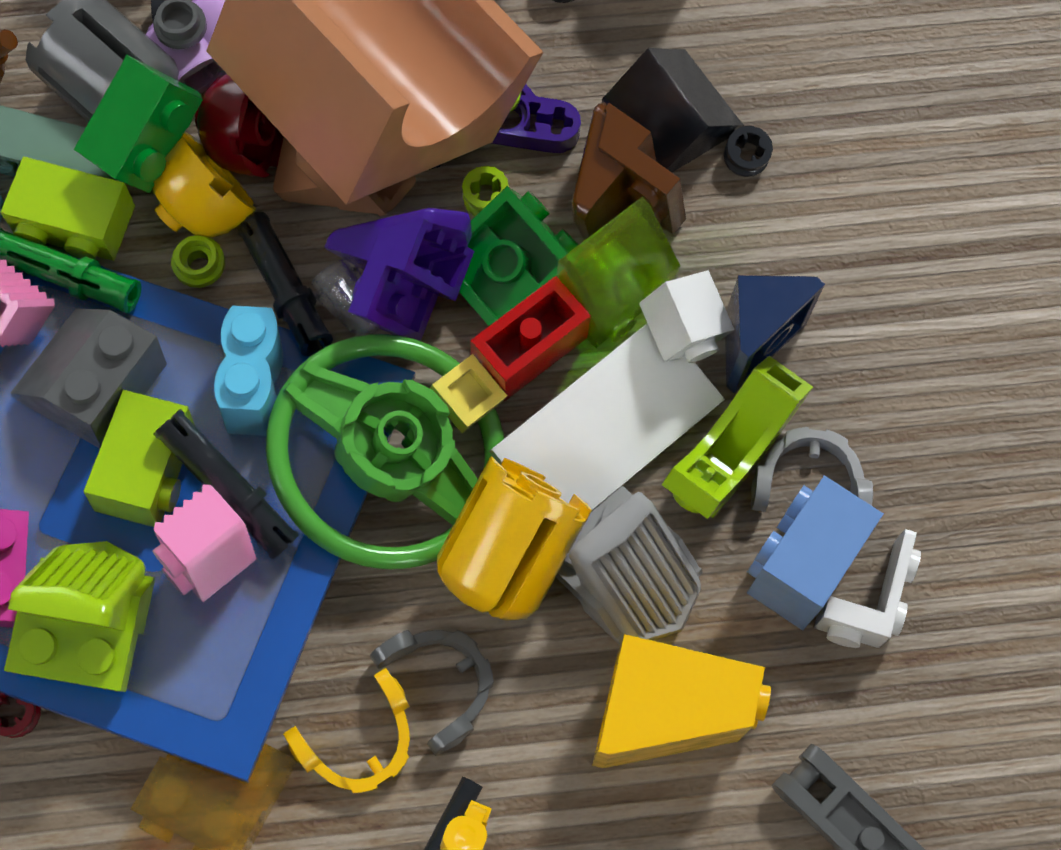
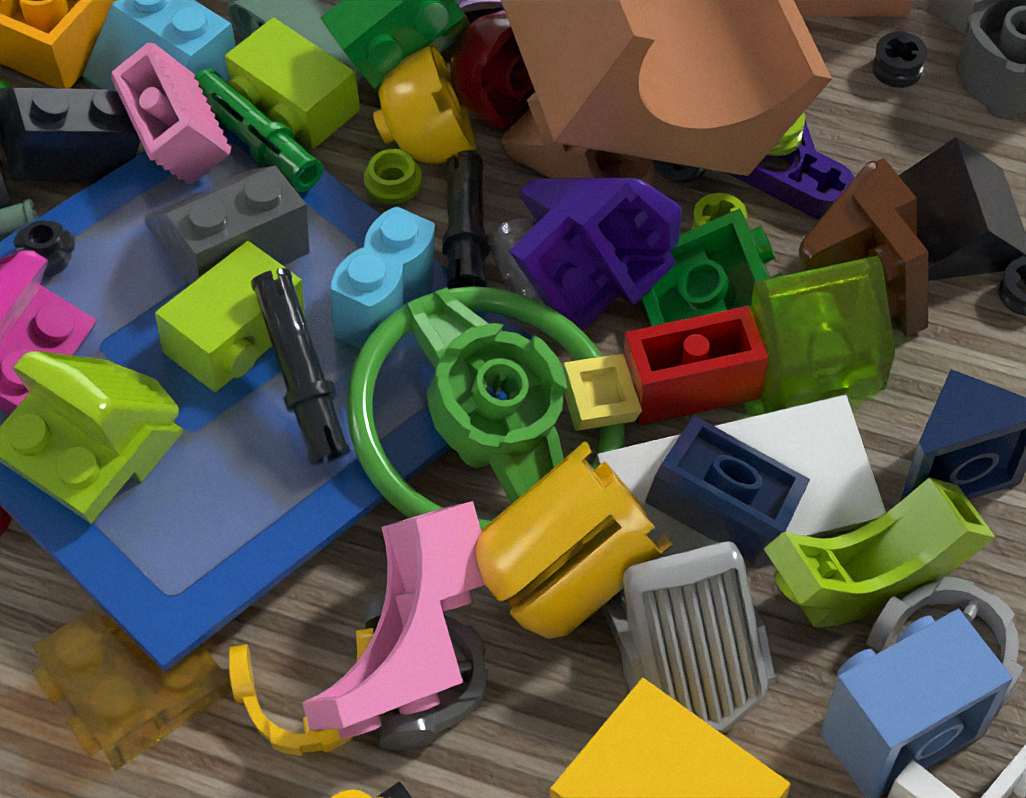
camera: 30 degrees right, 15 degrees down
(203, 544) = (242, 405): bright pink brick -> none
(428, 678) = (411, 650): none -> bright pink arch
(606, 436) = (726, 490): none -> dark blue slope
(687, 317) = (877, 402): white brick -> none

